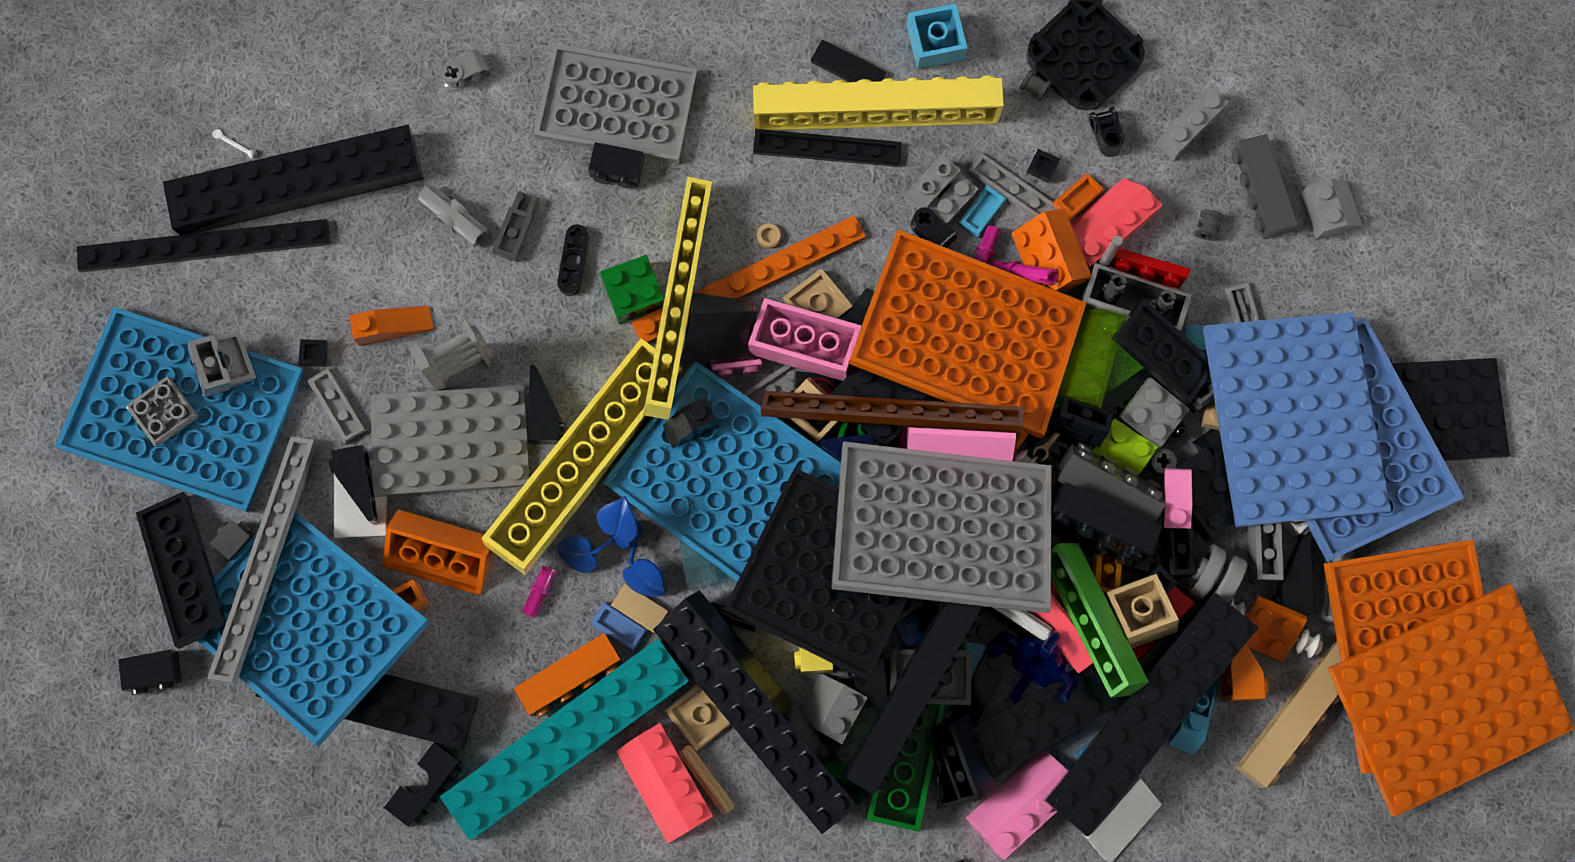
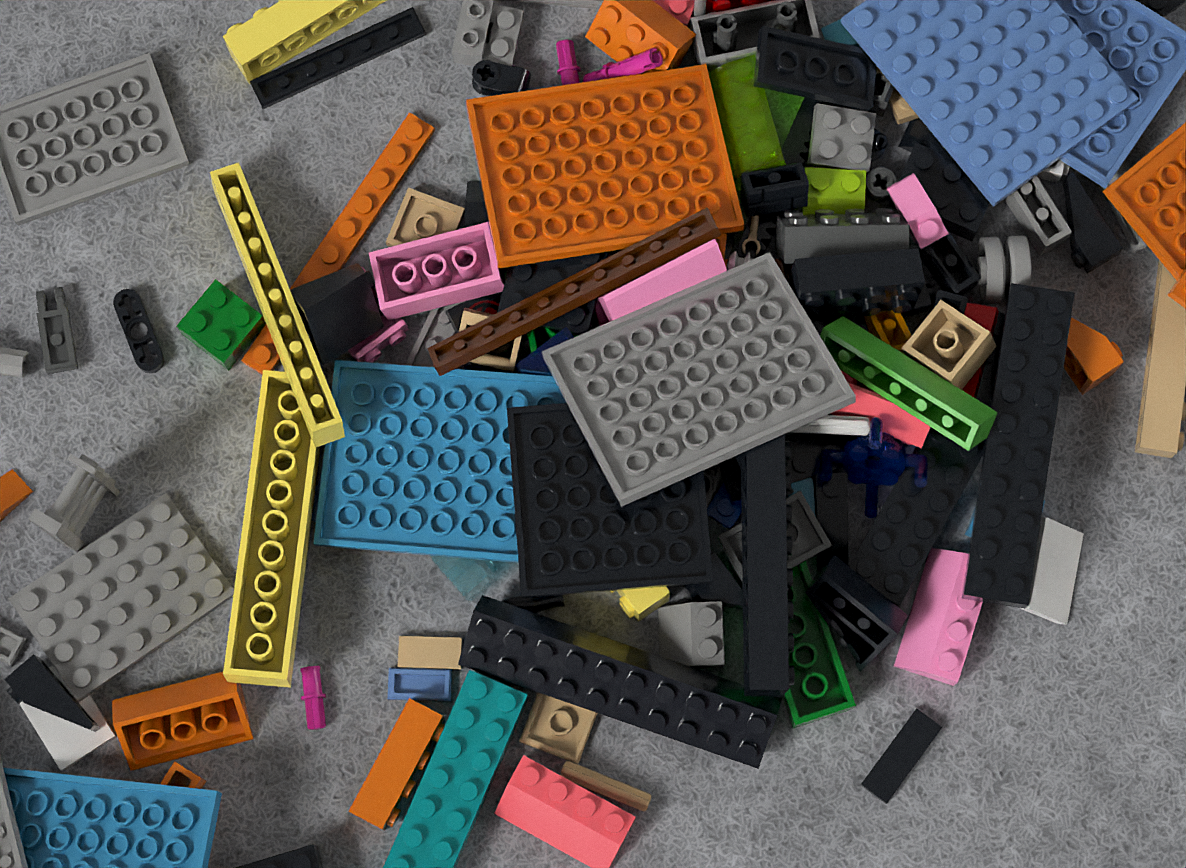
camera: 25 degrees left, 0 degrees up
(543, 418) = (209, 513): black slope -> none
(615, 520) = (359, 570): blue plant -> none
(616, 165) = (124, 204): black brick -> none
(690, 423) = (370, 426): black slope -> none
(768, 236) = (331, 186): tan tile -> none
(982, 211) = (541, 31): medium azure tile -> none
(1194, 727) = (1069, 436): medium azure slope -> none
(1278, 629) = (1097, 286): orange plate -> none

